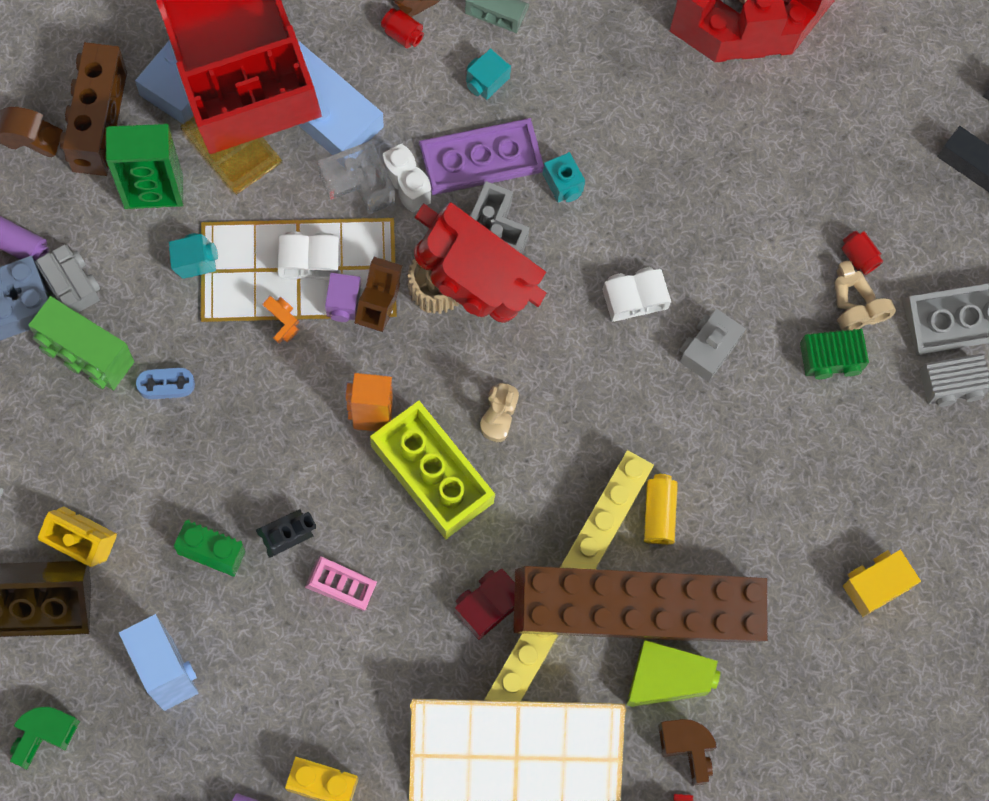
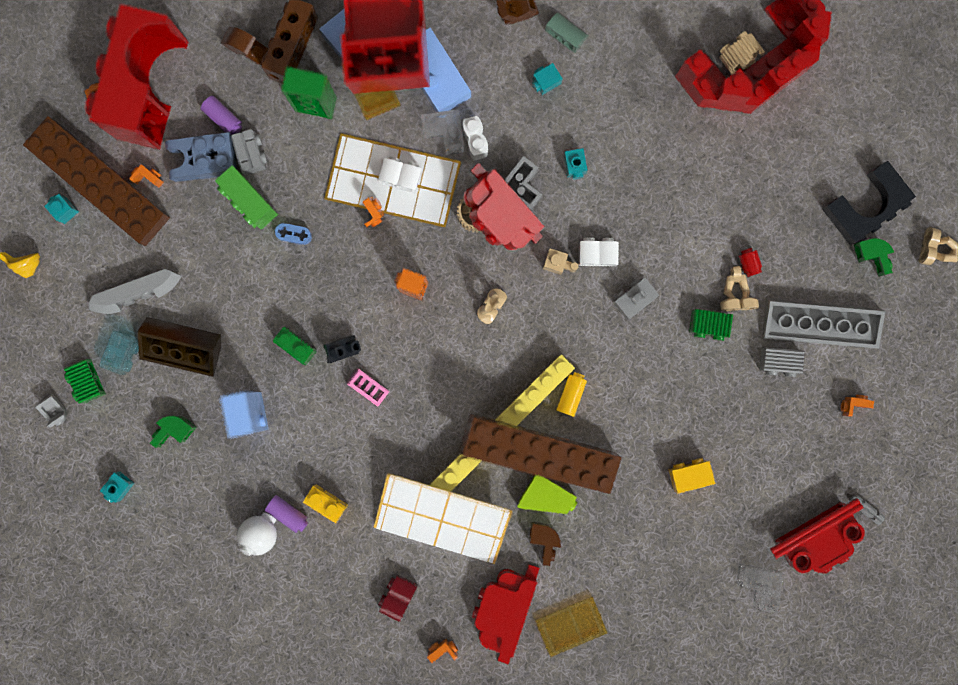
camera: 20 degrees right, 15 degrees up
(77, 536) = (217, 318): yellow brick -> none
(192, 255) = (328, 156): teal brick -> none
(342, 297) = (414, 208): medium lavender brick -> none
(379, 294) = (436, 213): reddish brown brick -> none
(402, 28) = (501, 32): red brick -> none
(432, 469) = (439, 333): neon yellow brick -> none
(481, 156) = (527, 133): medium lavender tile -> none
(487, 604) = (450, 424): dark red brick -> none
(579, 321) = (556, 262): none -> tan brick

